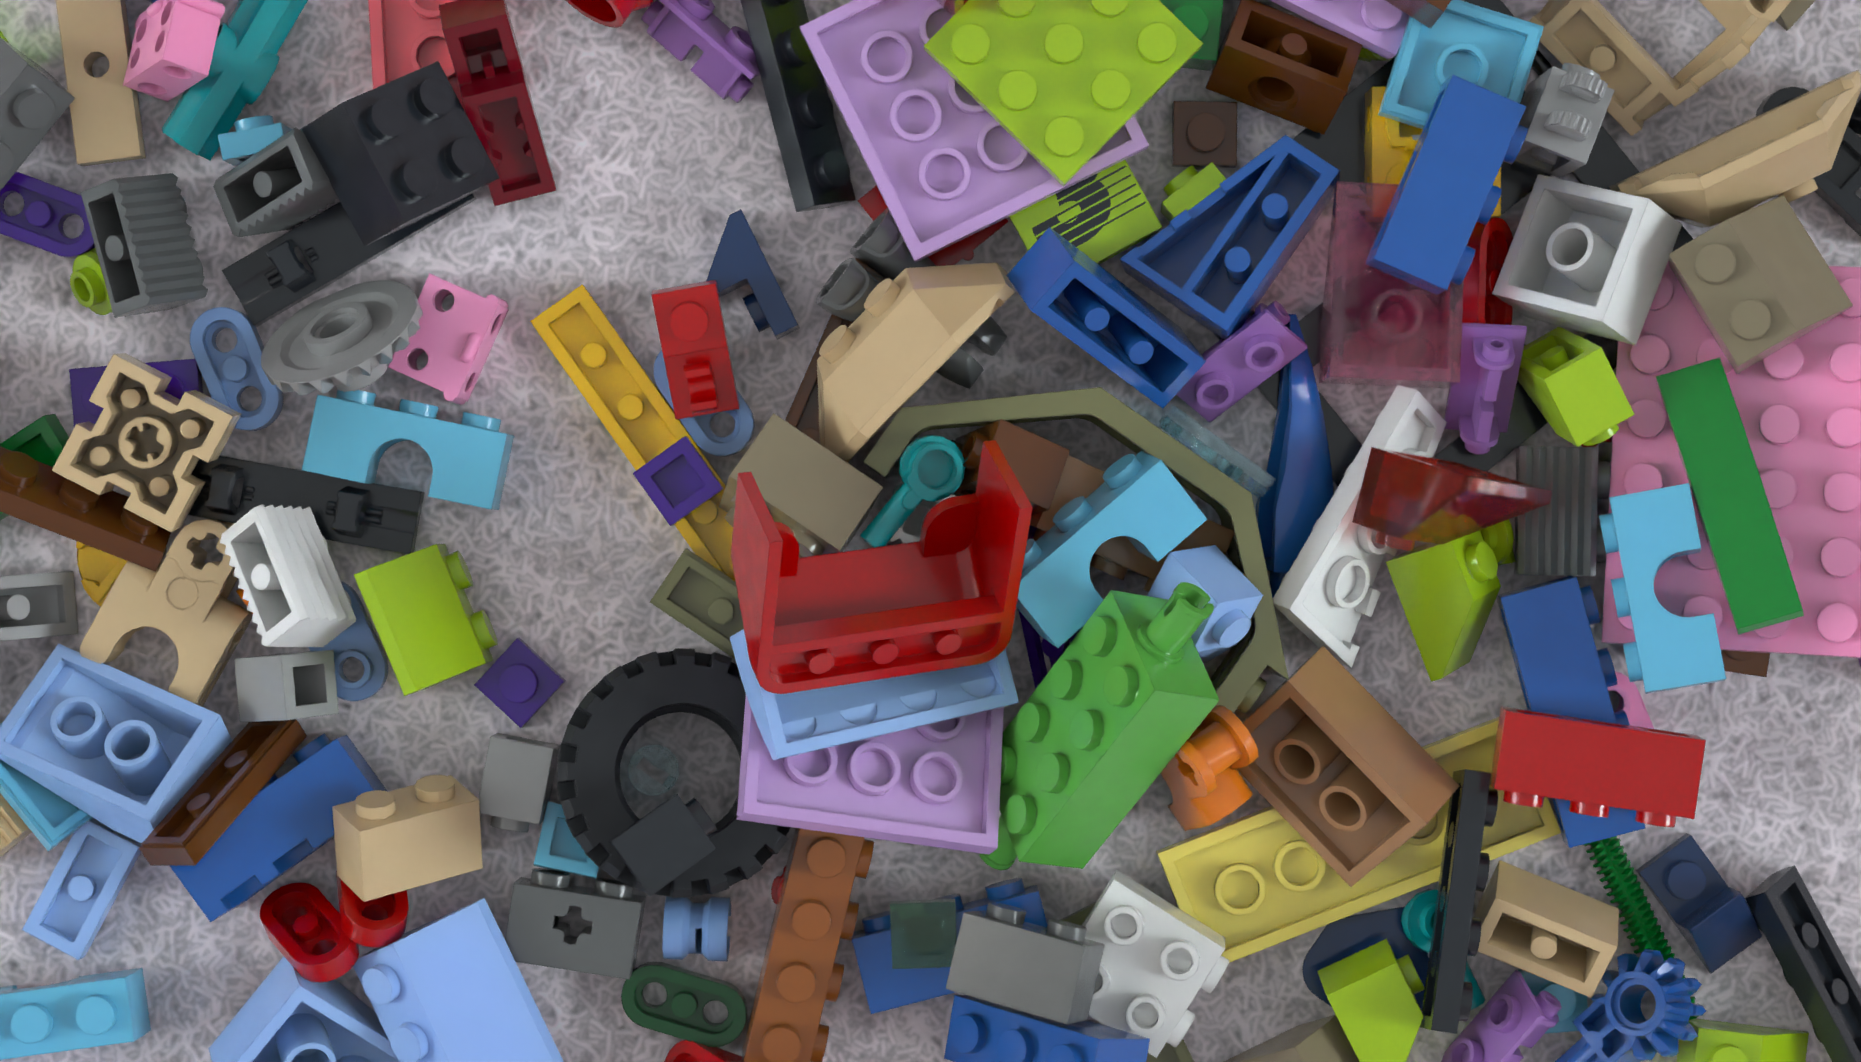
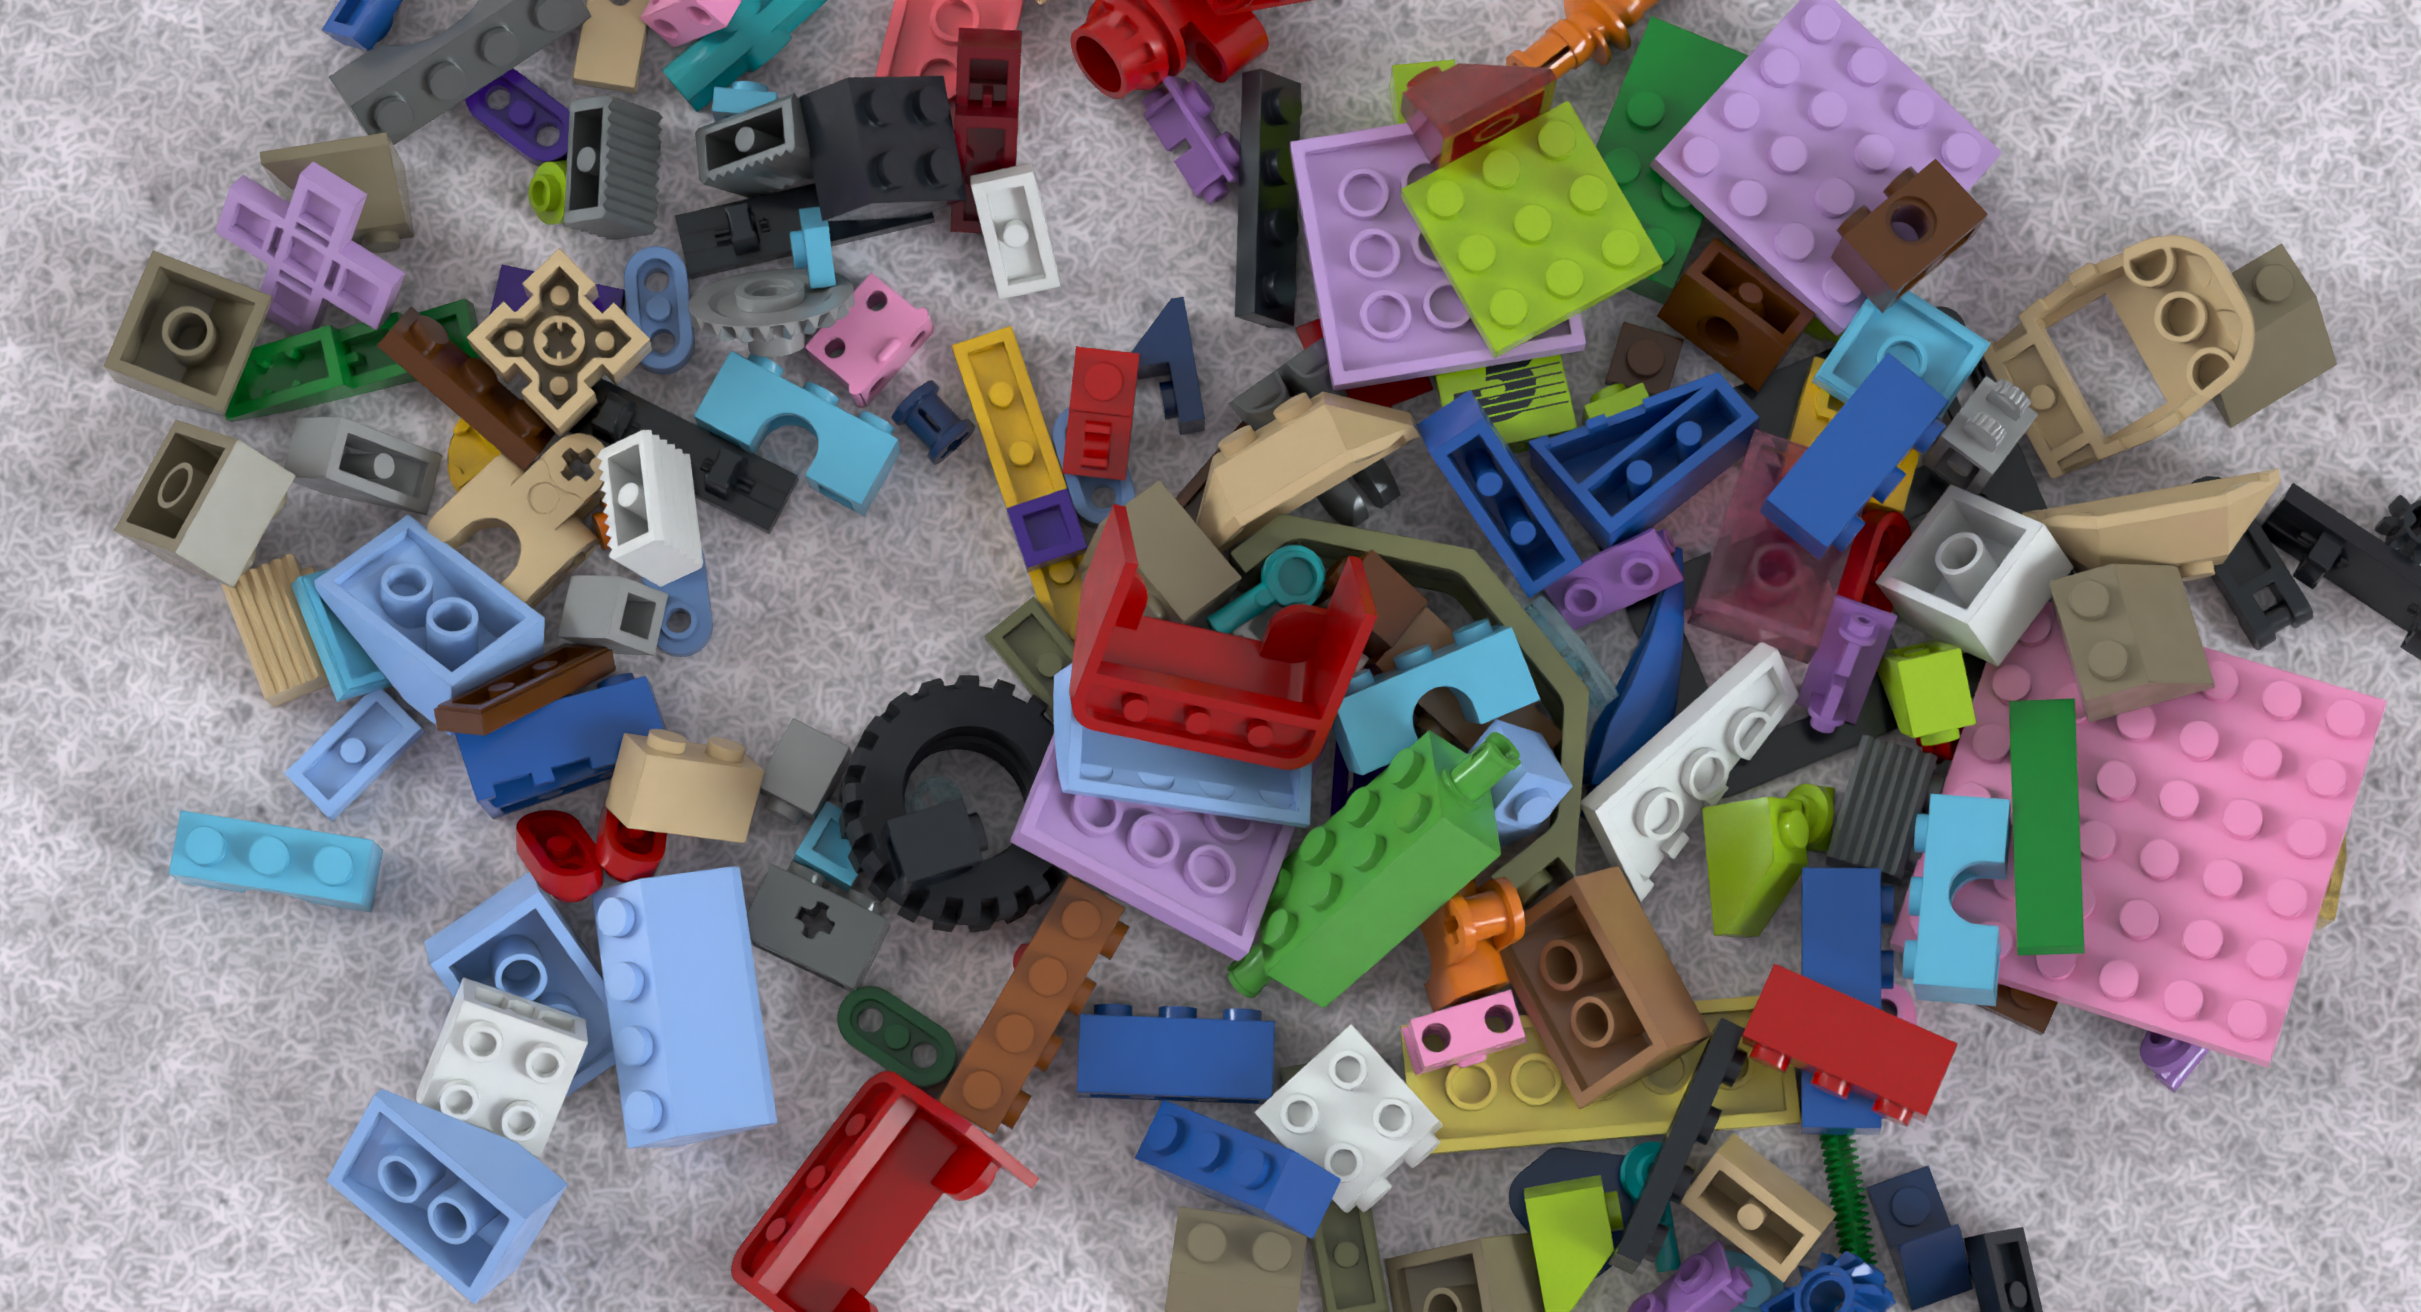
camera: 15 degrees right, 10 degrees down
(366, 270) = (813, 248): none -> medium azure plate
(427, 617) = (767, 589): lime slope -> none
(519, 682) = (834, 683): dark purple plate -> none
(535, 401) = (913, 413): none -> dark blue bush
(557, 190) = (1015, 231): none -> white plate
(696, 928) = (918, 960): medium blue wheel -> none
(923, 933) = (1152, 1023): plate -> none
(1026, 964) = (1243, 1075): dark grey brick -> none
(1223, 851) = (1463, 1033): none -> bright pink piece
(1436, 499) = (1766, 751): clear red slope -> none

